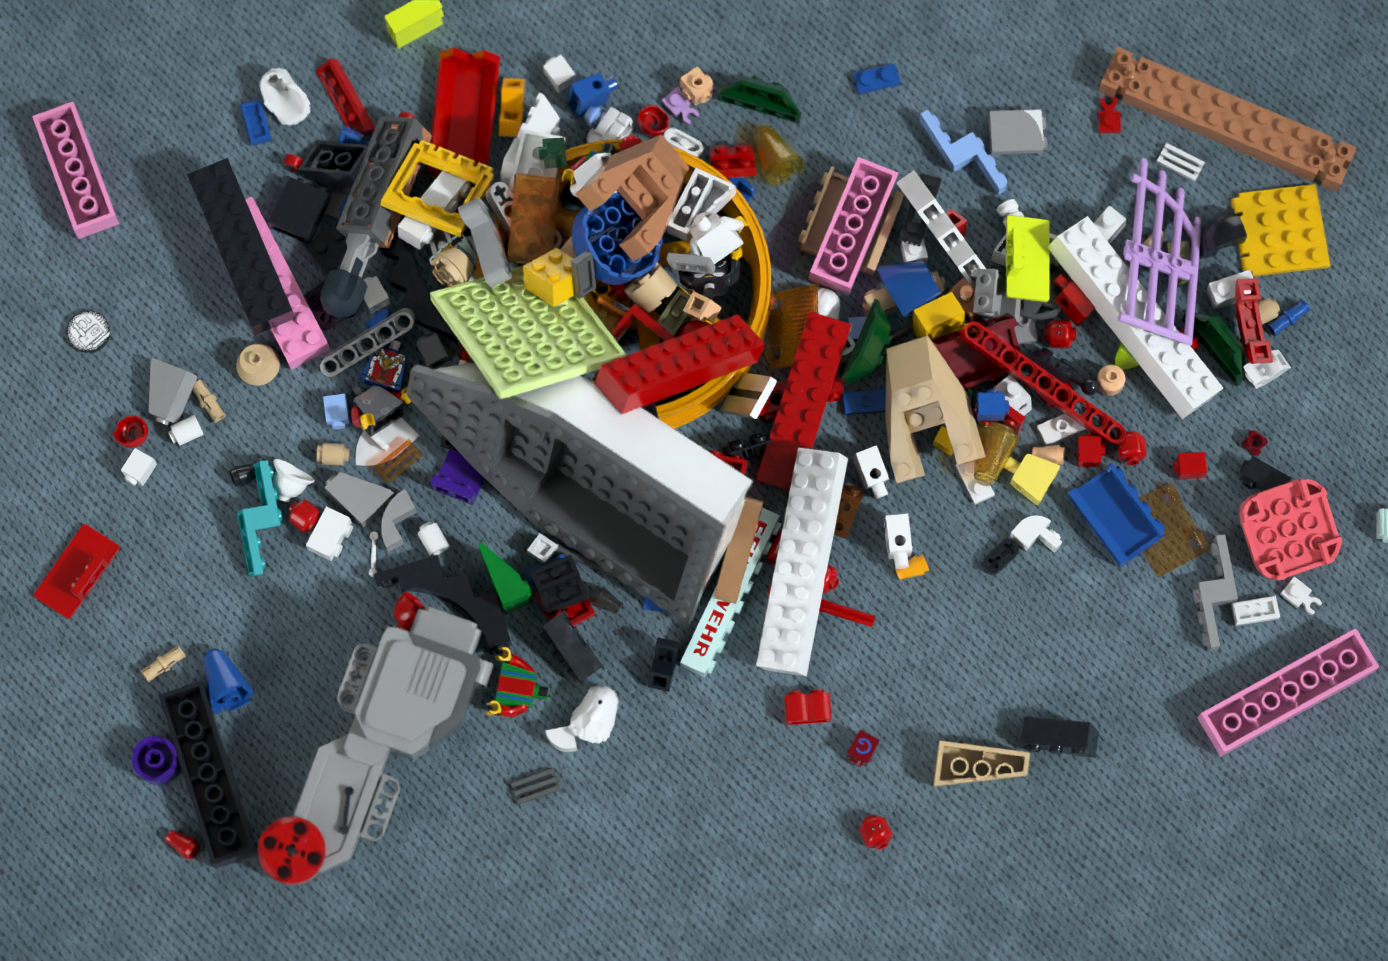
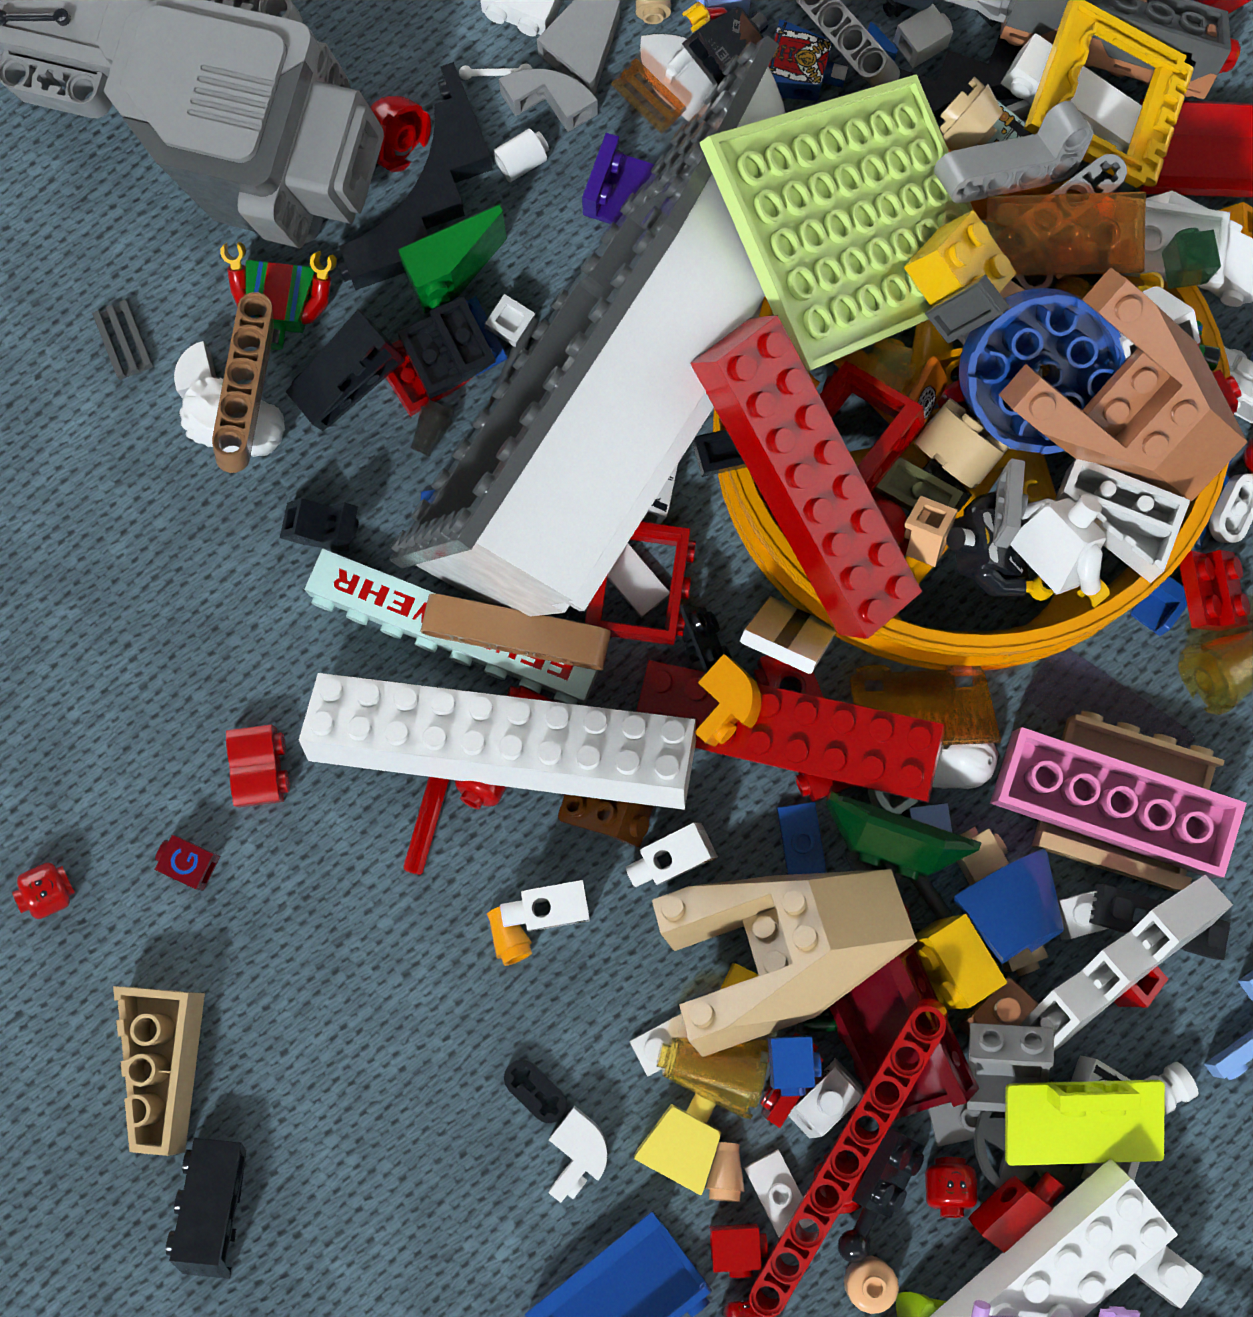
camera: 85 degrees right, 5 degrees up
(572, 691) = (243, 397): none -> medium nougat beam
(784, 424) = (737, 697): none -> light orange brick

